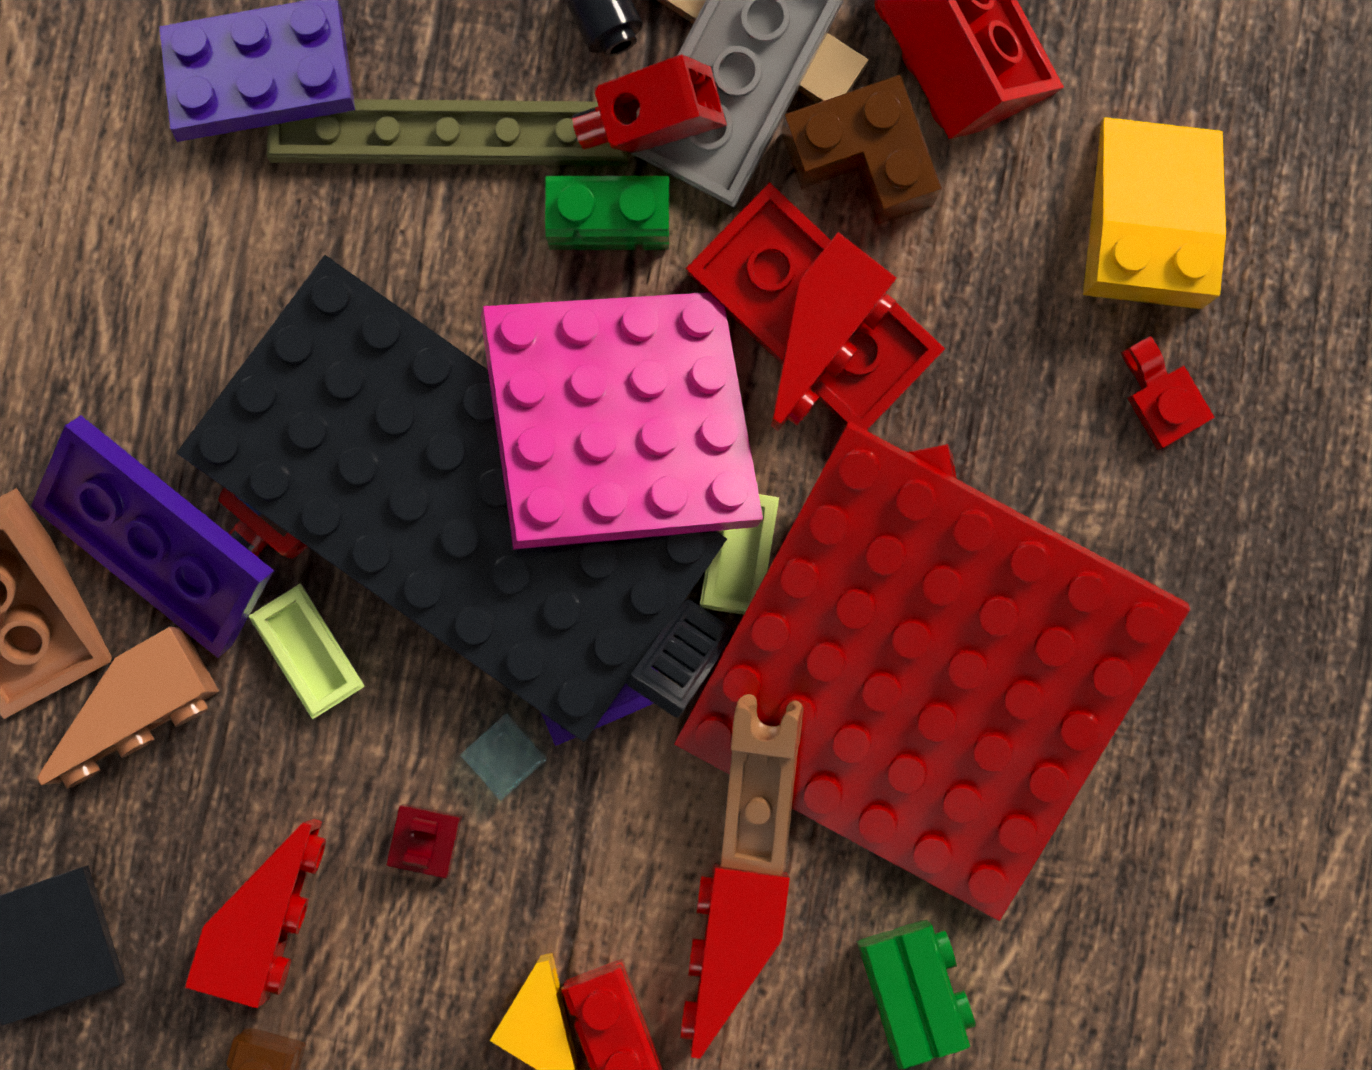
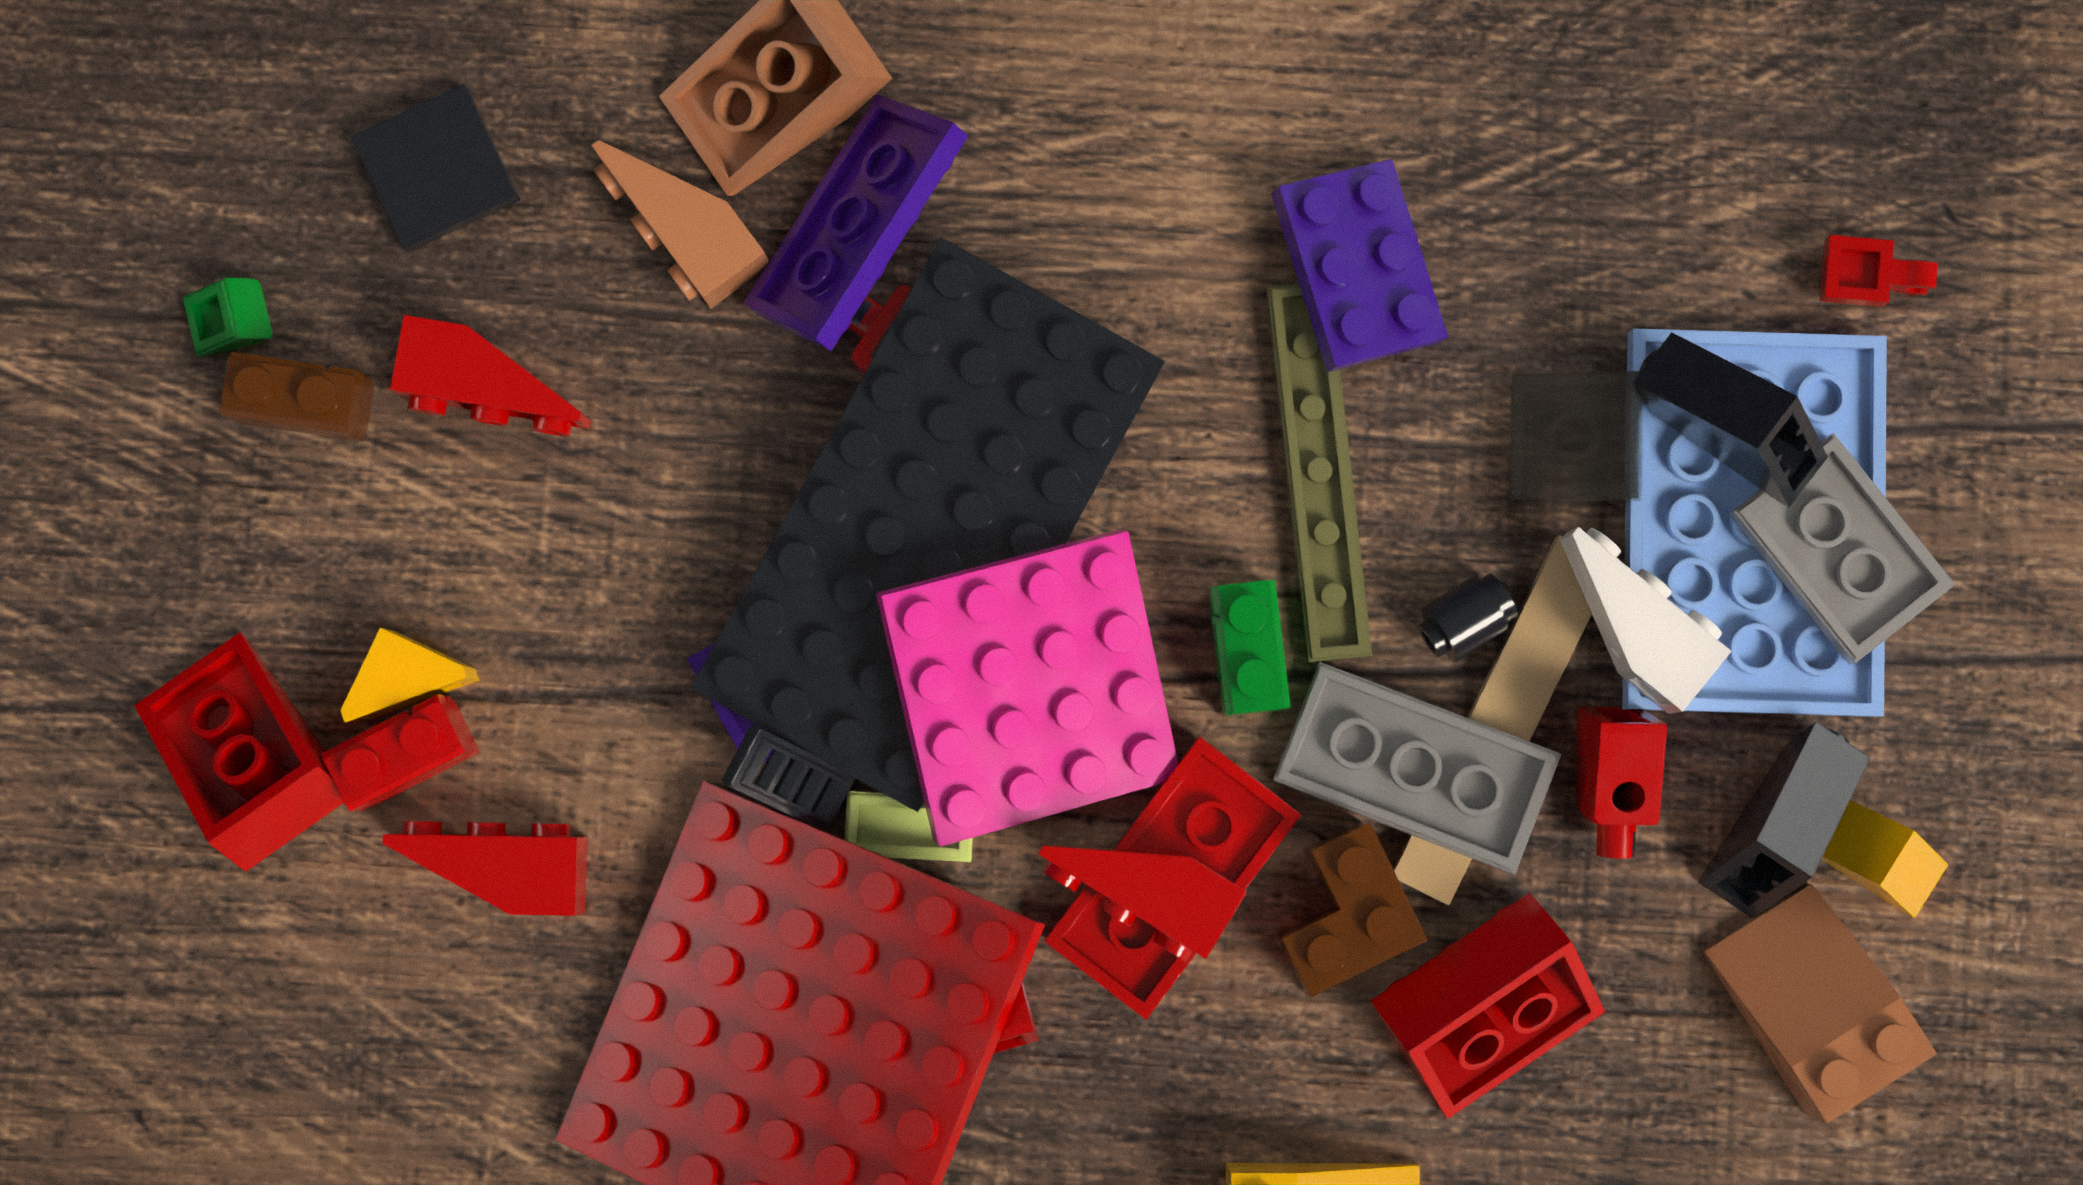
camera: 85 degrees right, 0 degrees up
(306, 651) = (759, 392): yellowish green tile -> none
(424, 841) = (578, 536): dark red tile -> none
(503, 757) = (672, 607): clear light blue tile -> none
(674, 102) = (1364, 696): red torso -> none
(760, 789) = (662, 875): medium nougat plate -> none
(915, 993) = (472, 1058): green brick -> none

